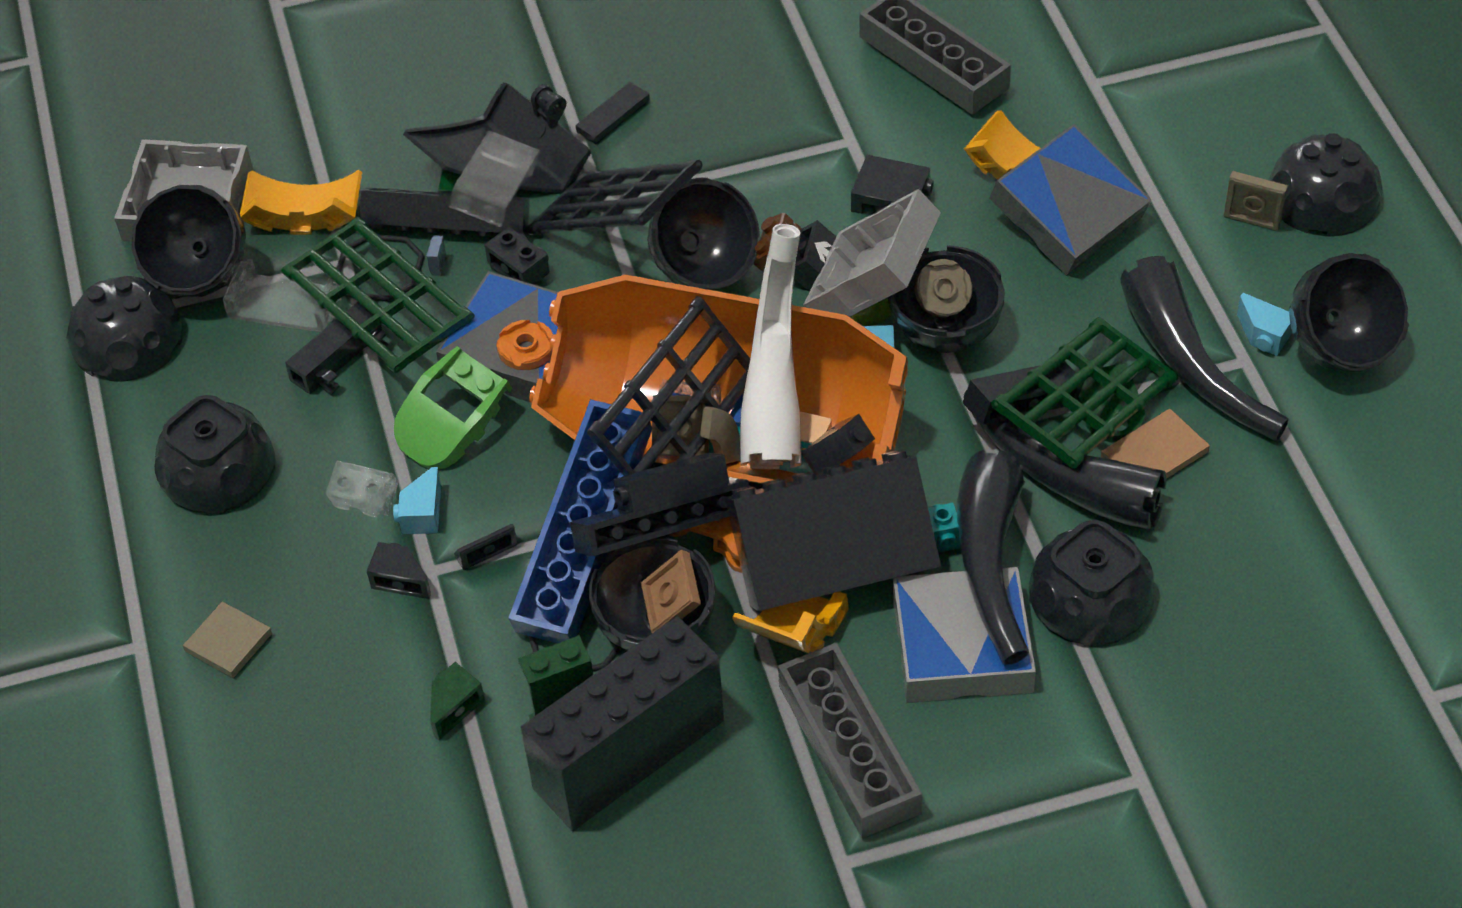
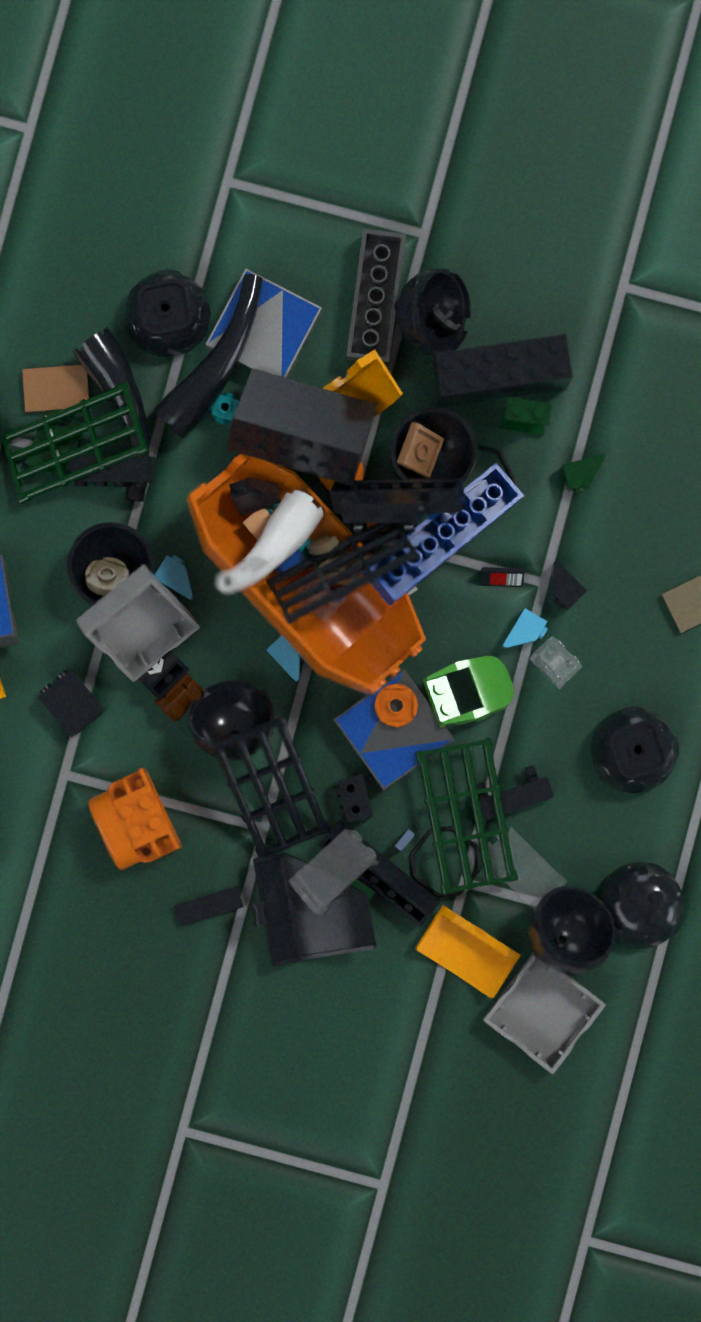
camera: 150 degrees left, 35 degrees up
(733, 756) = (444, 318): none -> dark grey piece
(741, 123) = (134, 821): none -> orange brick
(758, 742) = (416, 313): none -> black rock

